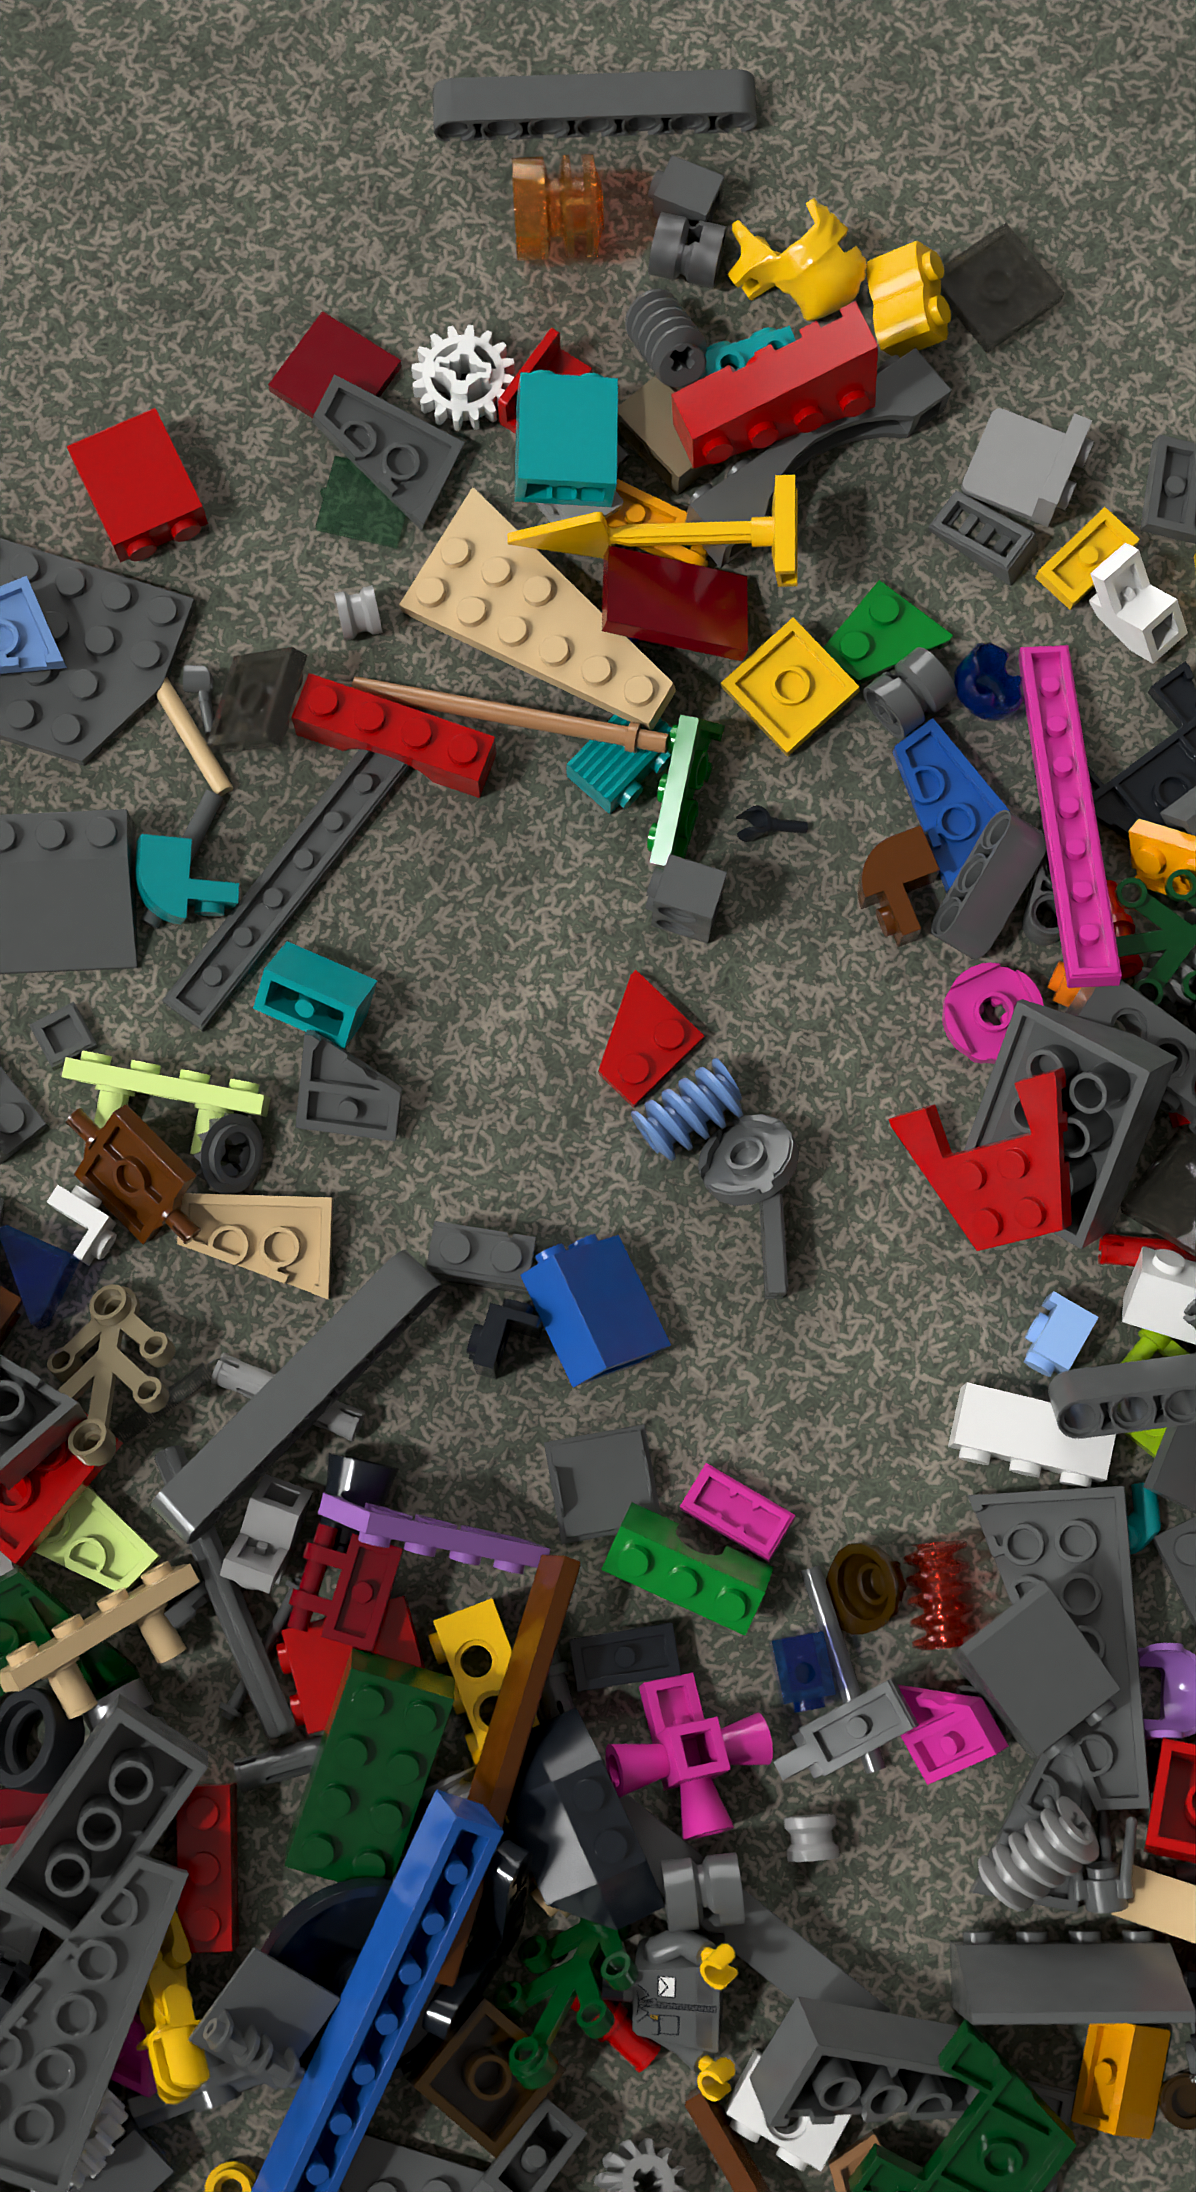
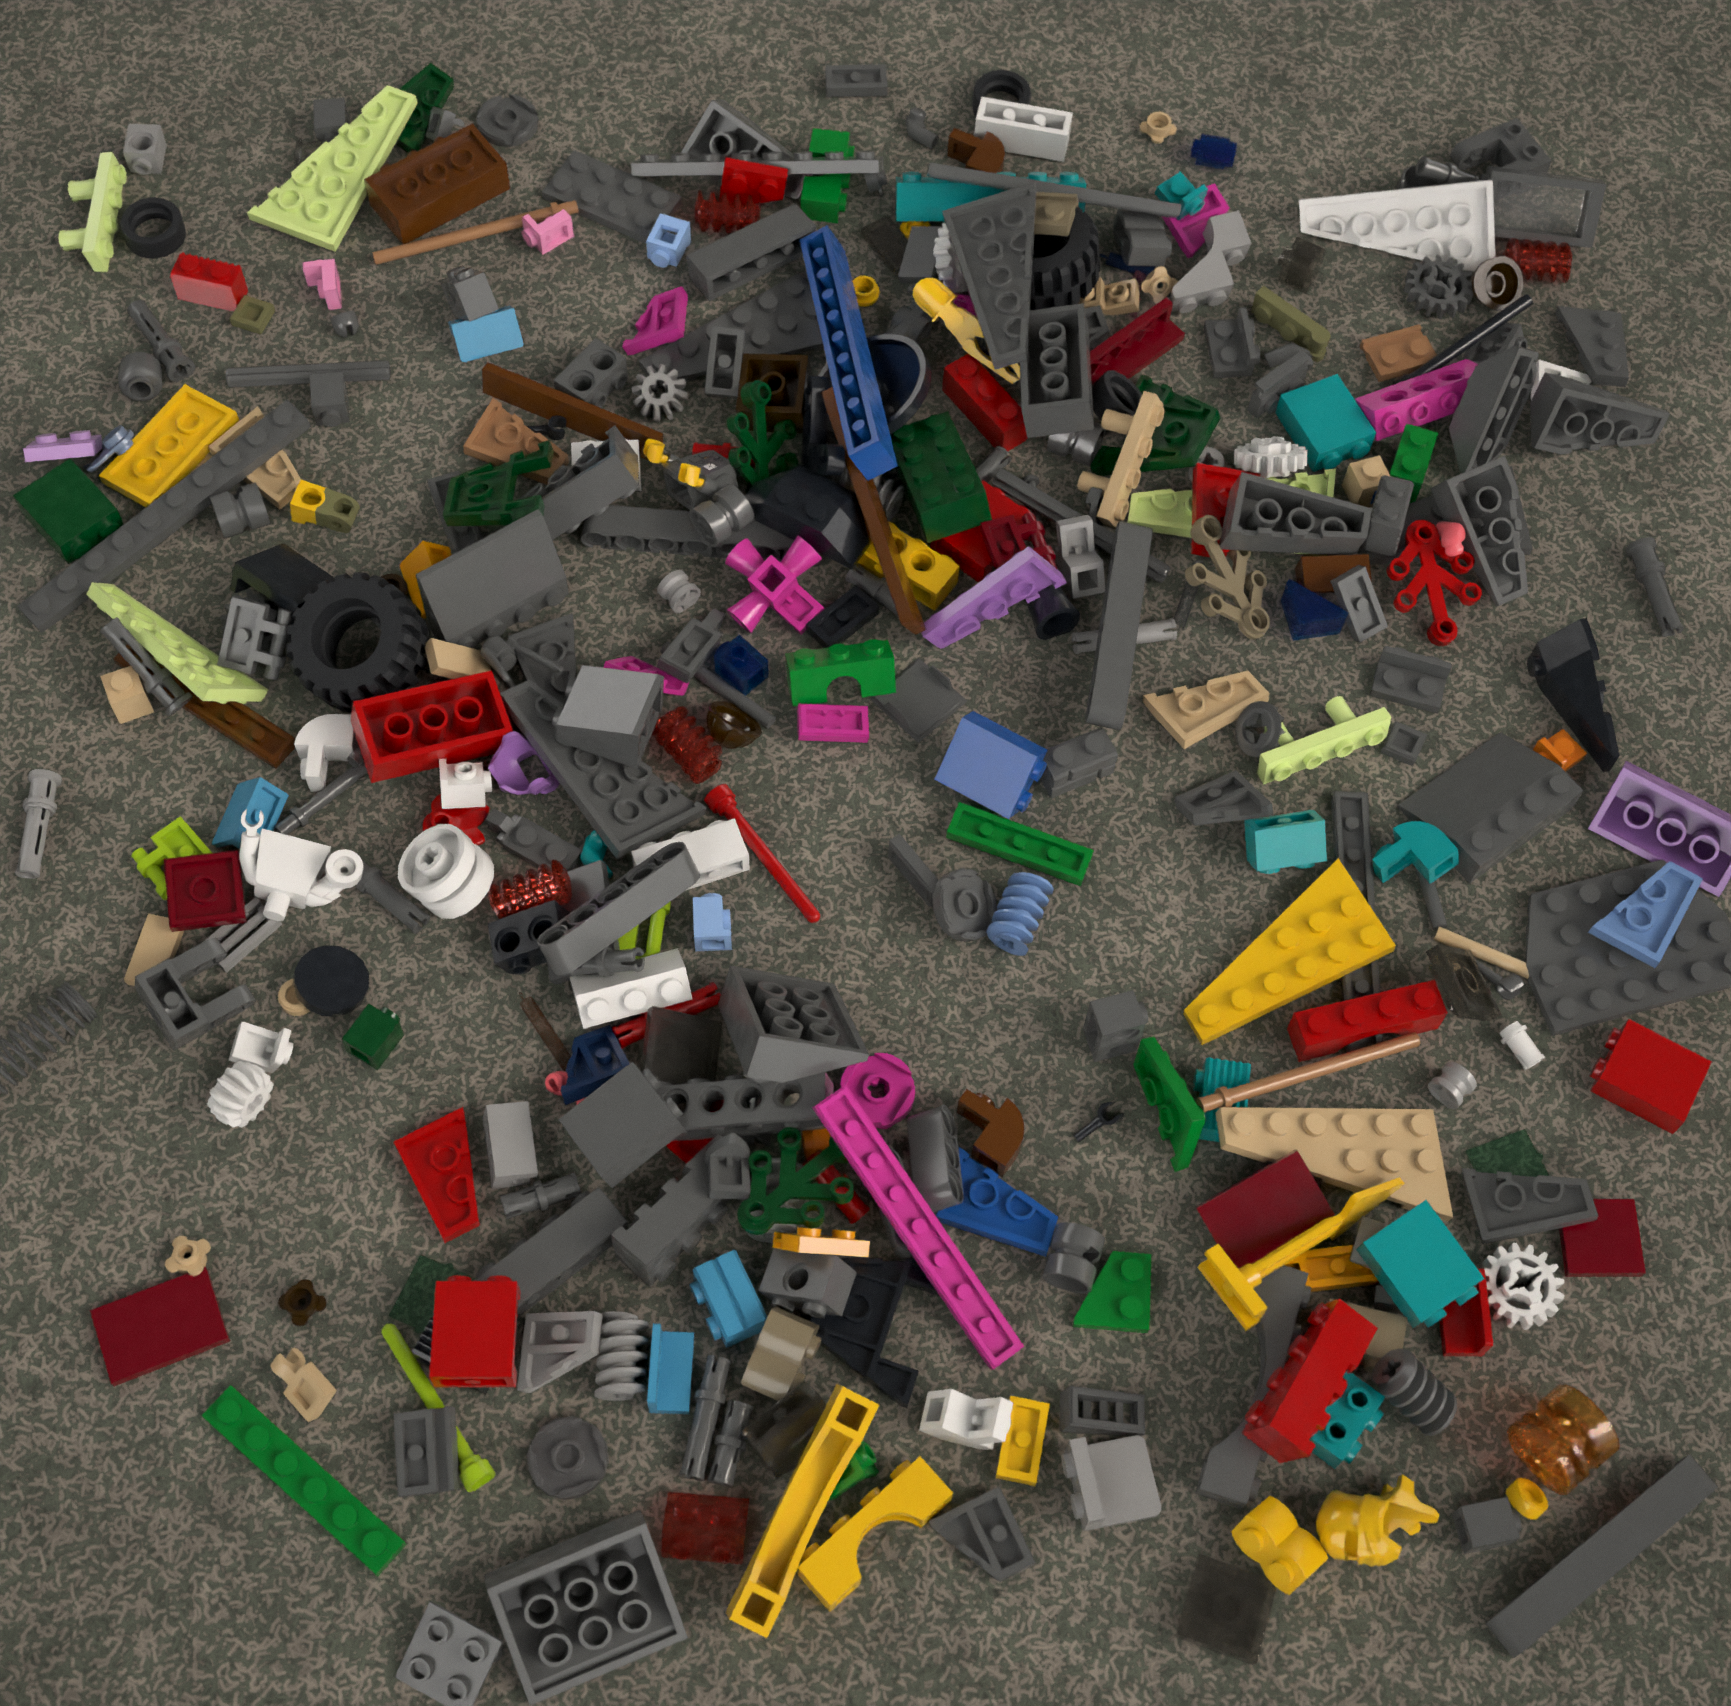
camera: 145 degrees right, 15 degrees down
(82, 1208) = (1308, 655): white bracket -> none
(134, 1174) = (1290, 683): reddish brown plate -> none
(243, 609) = (1521, 1045): none -> white pin
(265, 2020) = (903, 332): dark grey hinge -> none
(393, 861) = (1308, 946): none -> yellow wing
(490, 1340) = (1035, 714): black bracket -> none
(623, 1202) = (1019, 844): none -> green plate
(626, 195) = (1527, 1498): none -> yellow tile
(645, 1041) = (1076, 945): red wing -> none
(687, 250) = (1457, 1478): flat silver wheel -> none
(790, 686) = (1152, 1215): yellow plate -> none
(942, 1488) = (722, 801): none -> red piece
(986, 685) = (1026, 1298): clear blue hair -> none
(1007, 1186) = (808, 978): red wing -> none
(1041, 1860) = (548, 633): light grey piece -> none

